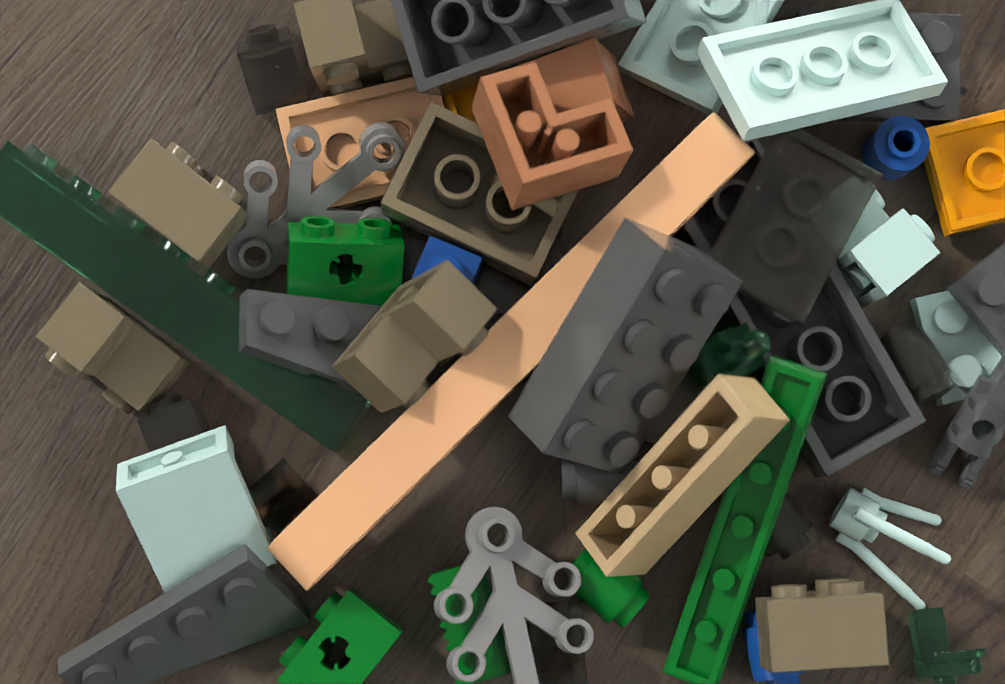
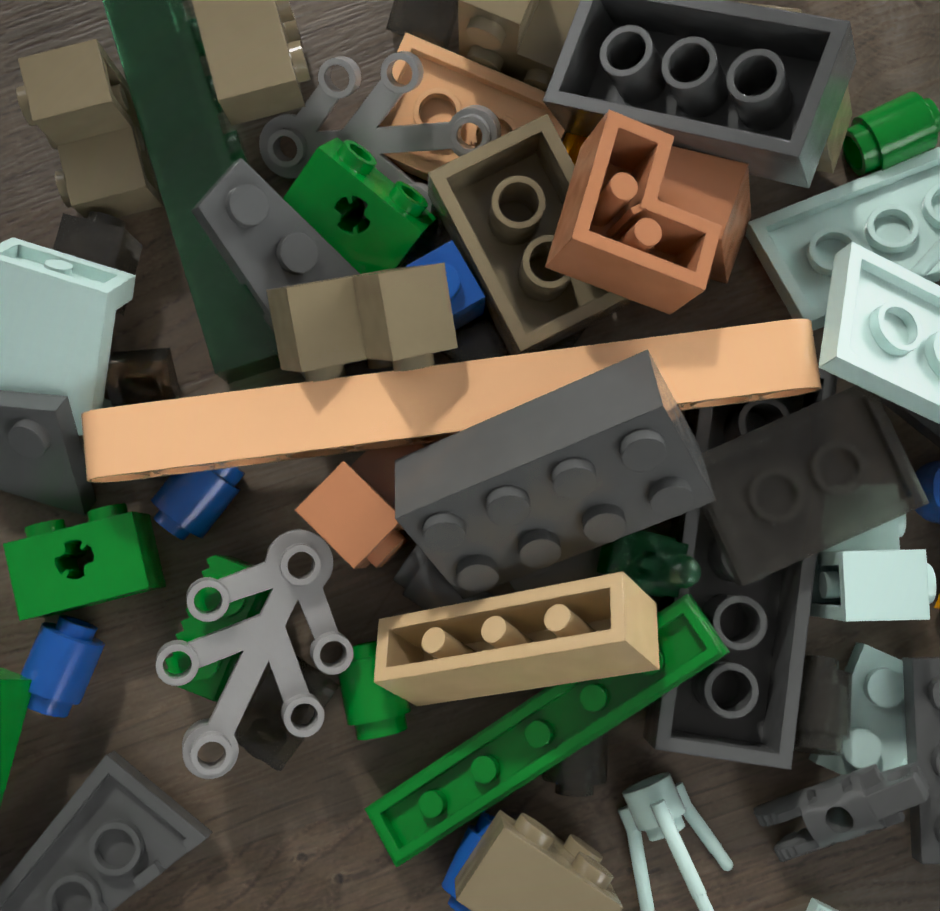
camera: 40 degrees right, 0 degrees up
(382, 551) = (195, 500): none -> blue brick
(507, 463) = (357, 508): none -> nougat brick

